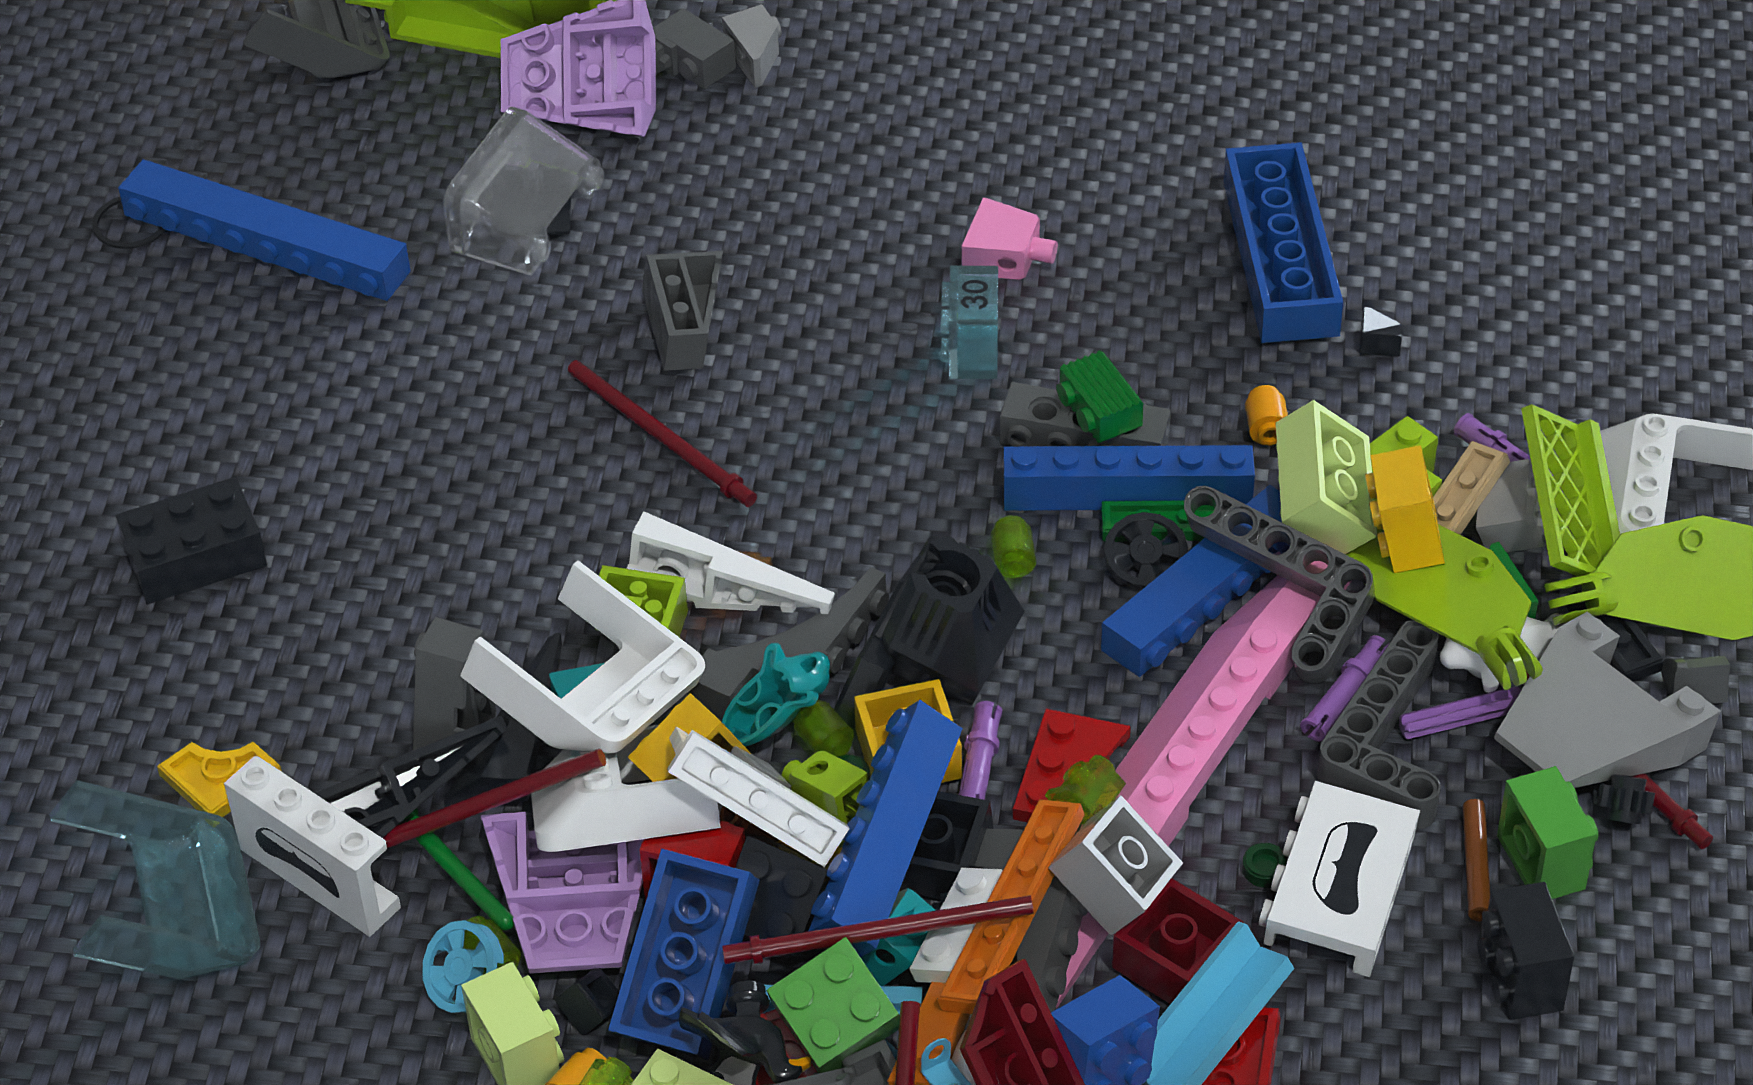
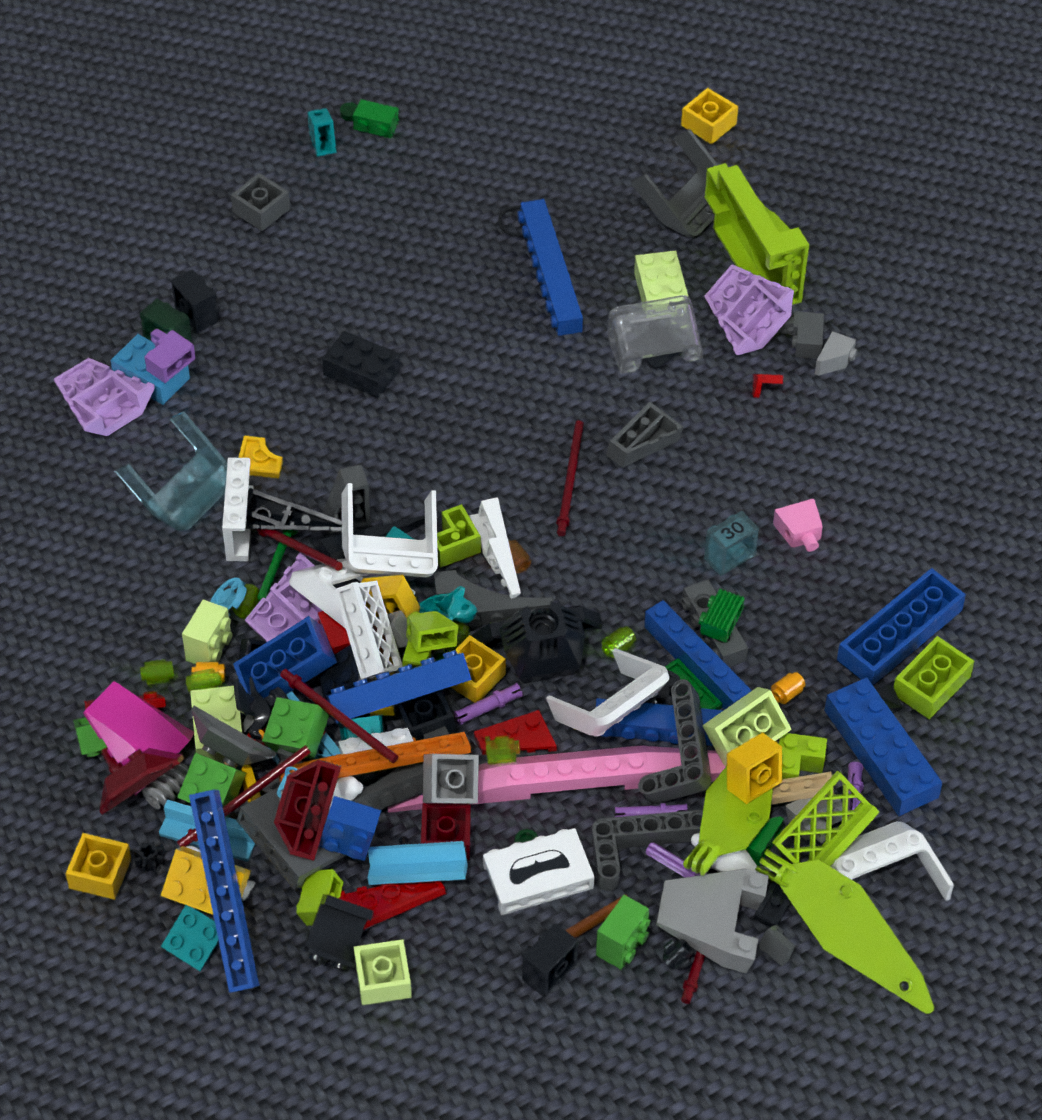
camera: 50 degrees right, 5 degrees up
(427, 132) = (659, 276): none -> yellowish green brick
(717, 143) = (758, 379): none -> red tile
(808, 733) = (430, 631): none -> lime torso
(1166, 588) = (648, 682): none -> white windscreen
(1395, 258) = (933, 677): none -> lime brick
(1453, 373) = (883, 746): none -> blue brick

